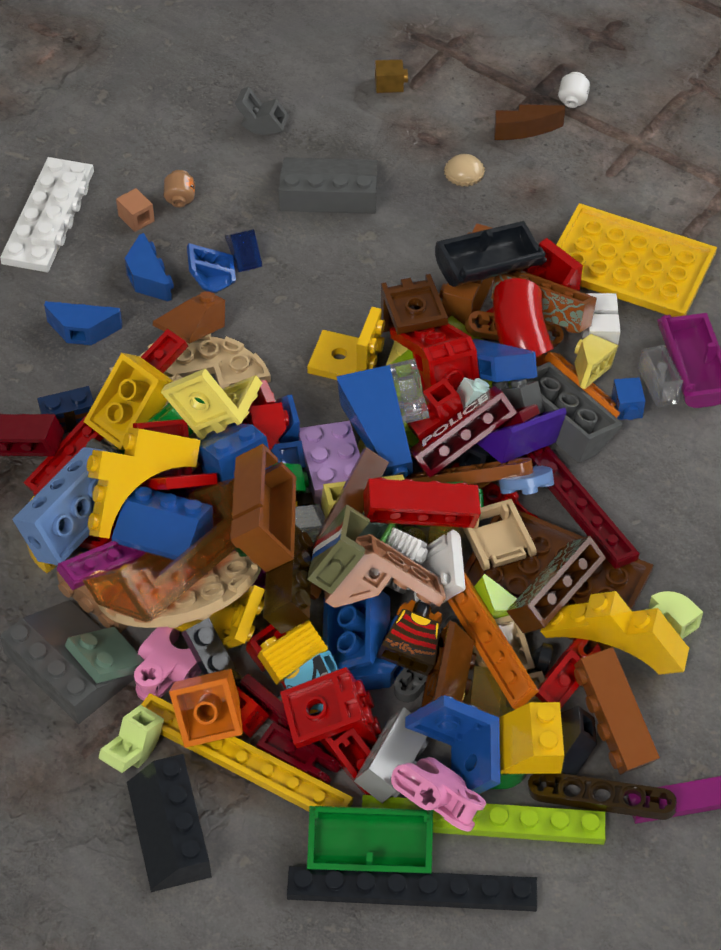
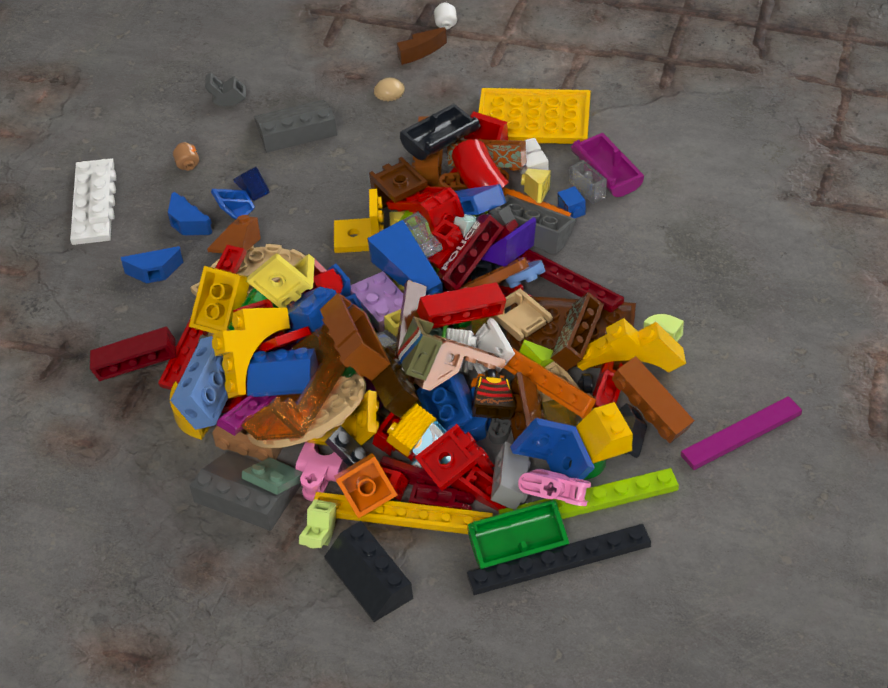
camera: 15 degrees left, 5 degrees down
(68, 406) = (174, 318): dark blue brick -> none
(135, 209) = (159, 179): nougat brick -> none
(390, 76) = (308, 41): pearl gold brick -> none
(614, 804) = (673, 451): dark brown beam -> none

